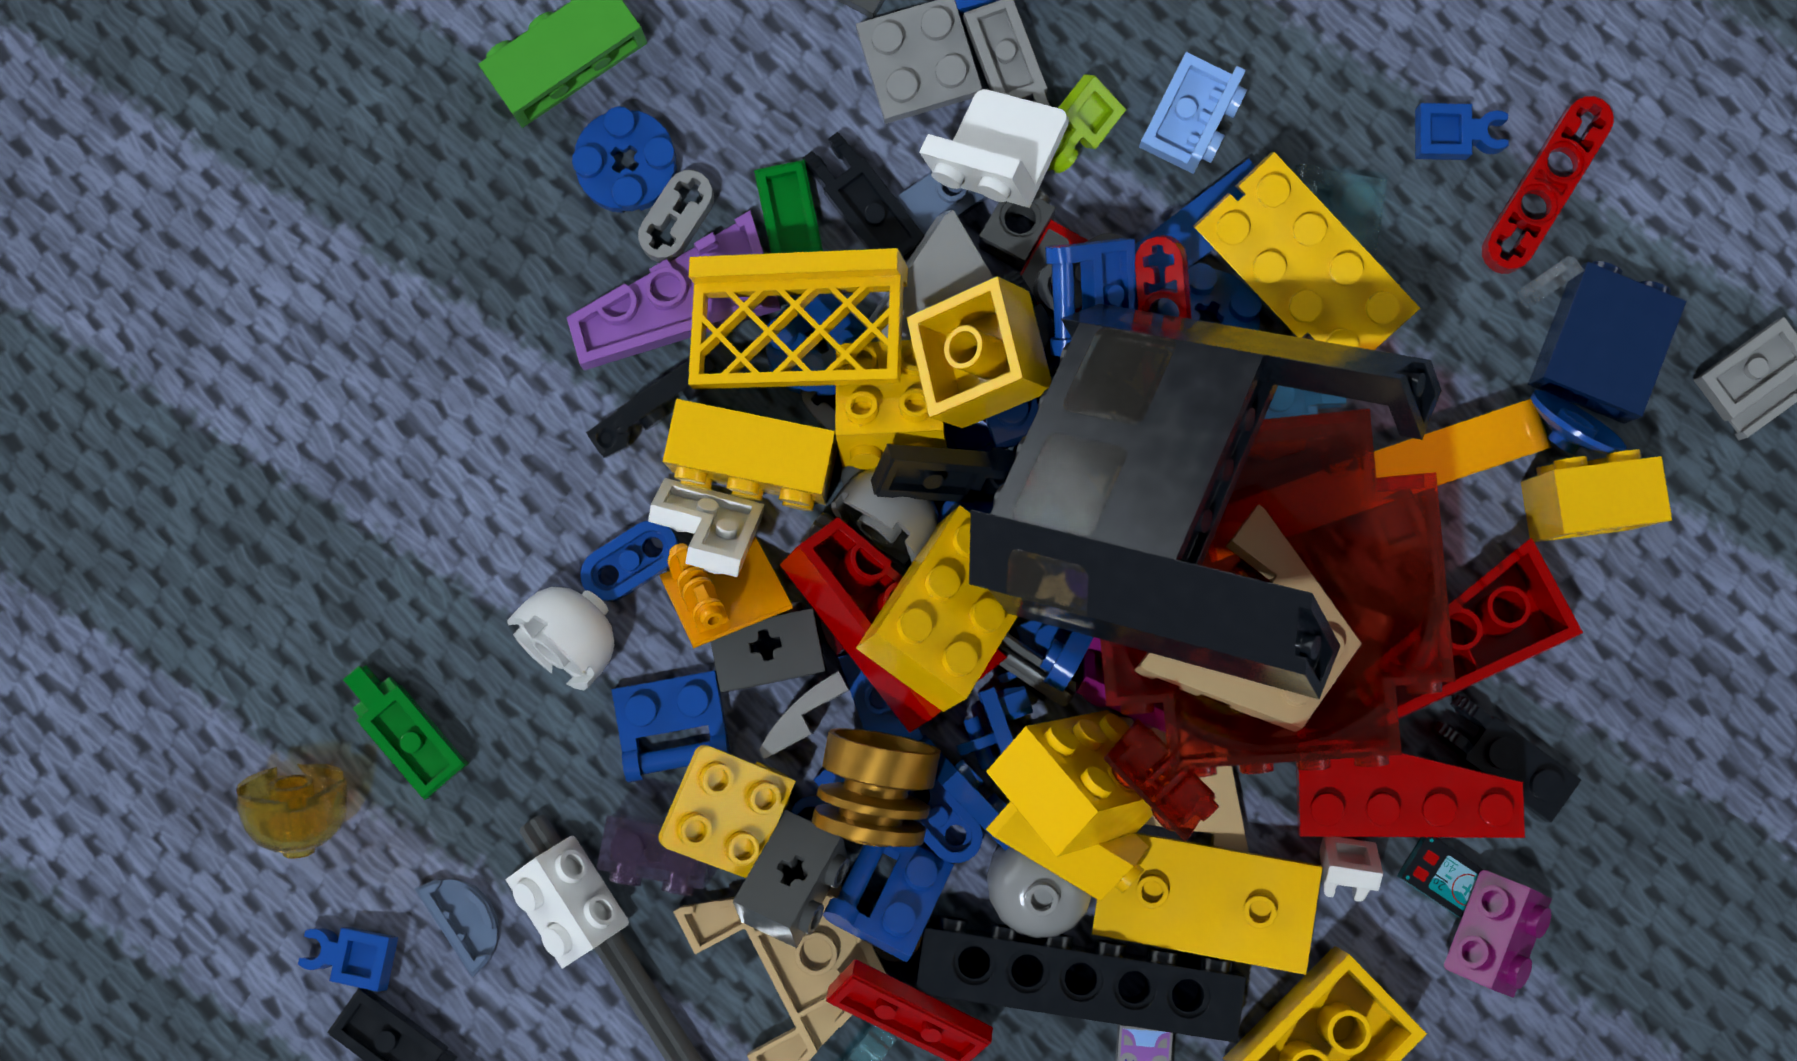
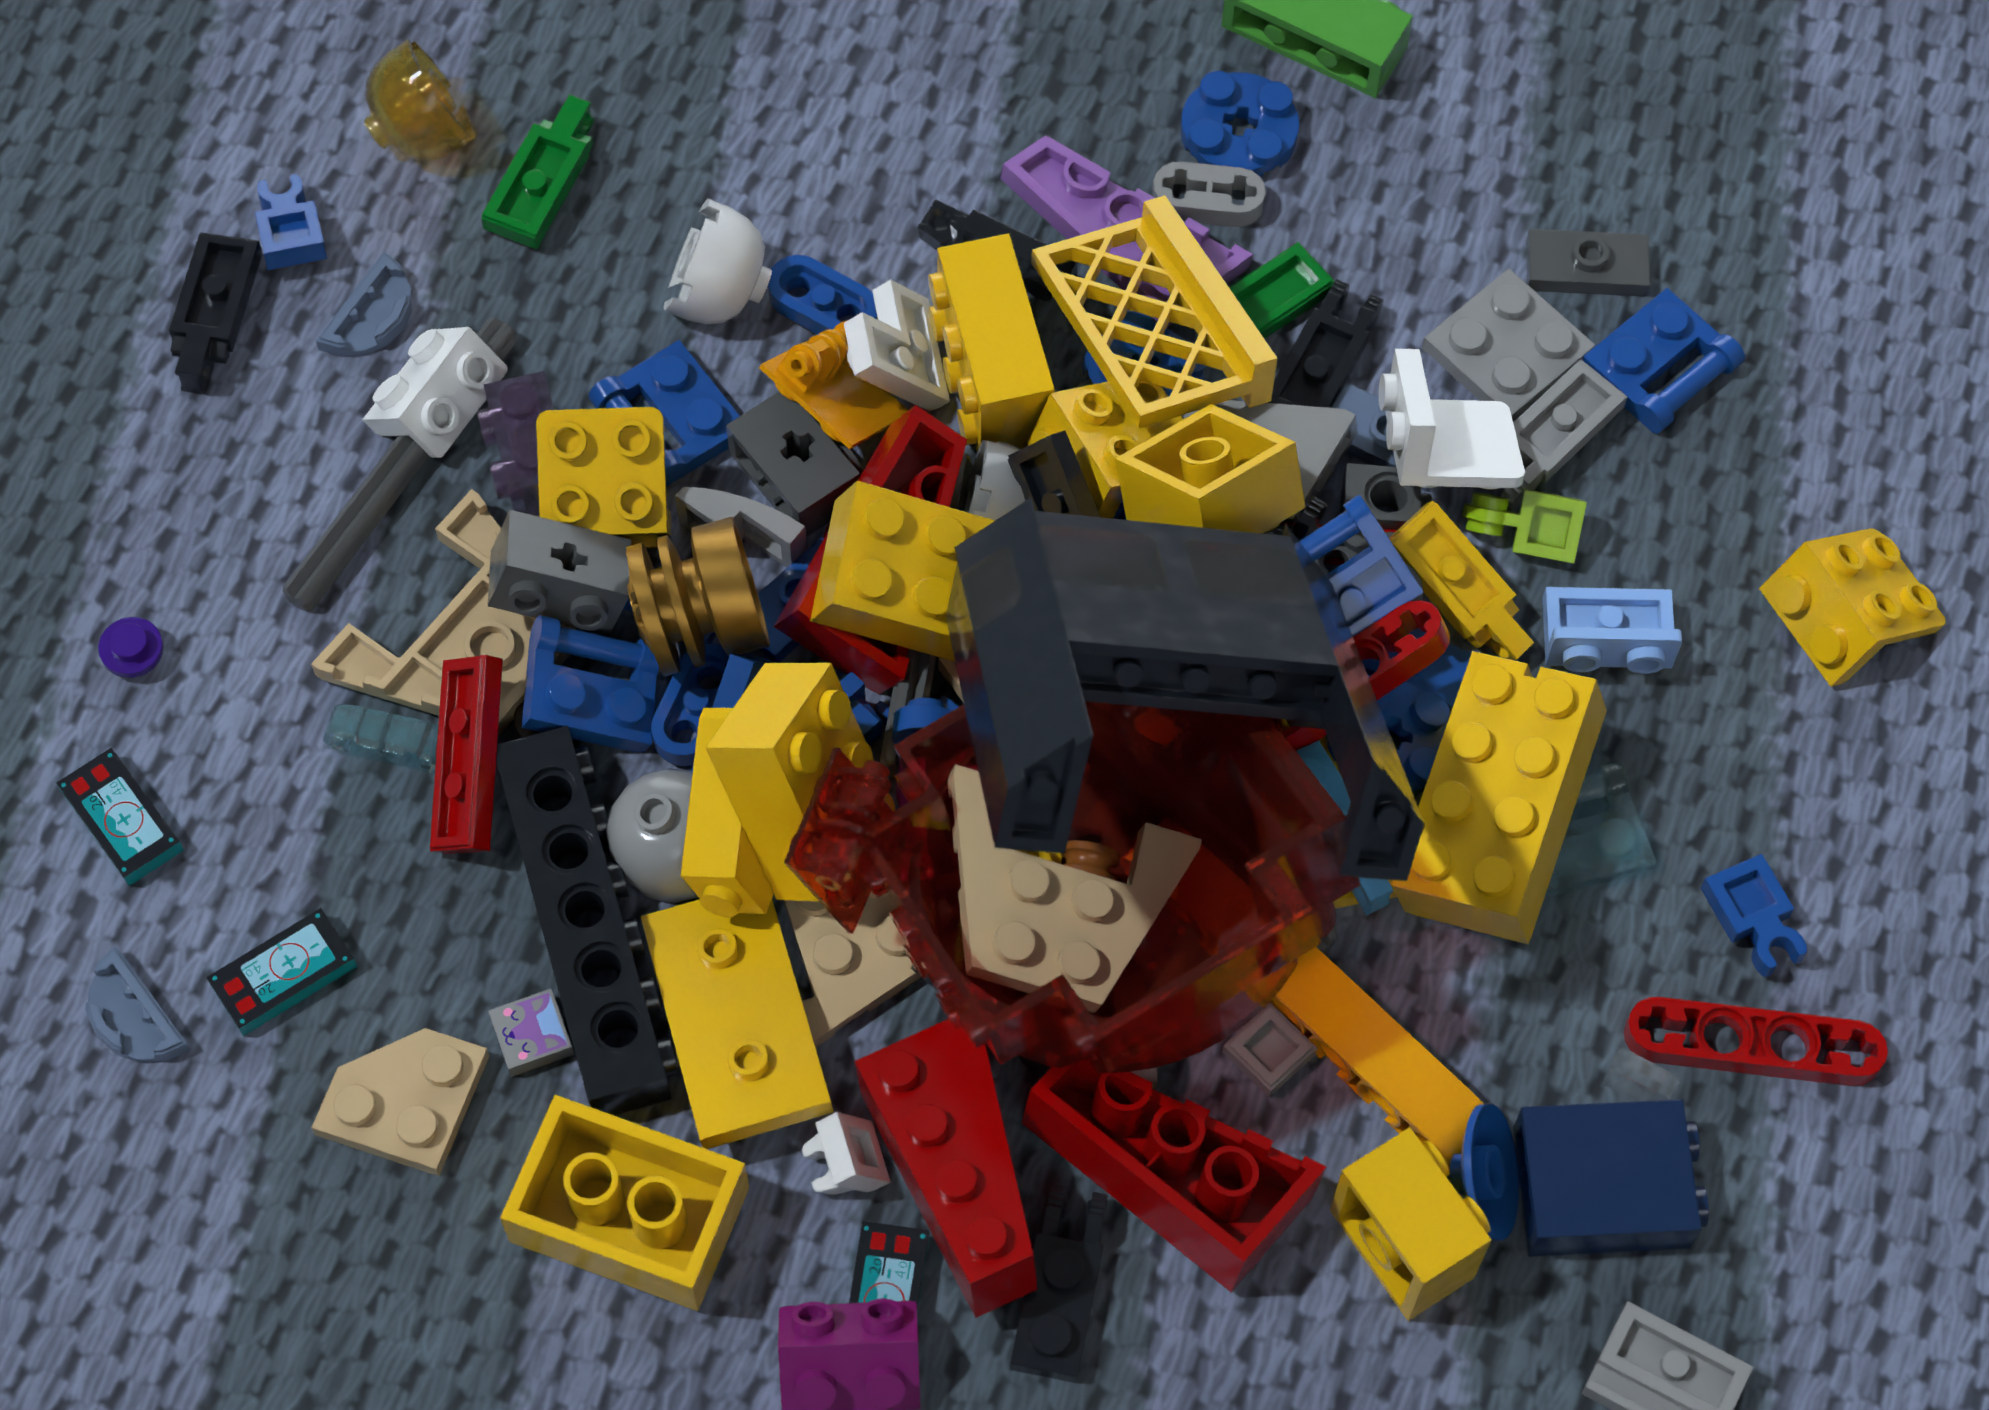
camera: 60 degrees right, 20 degrees down
(1110, 203) = (1461, 582): none -> yellow hinge

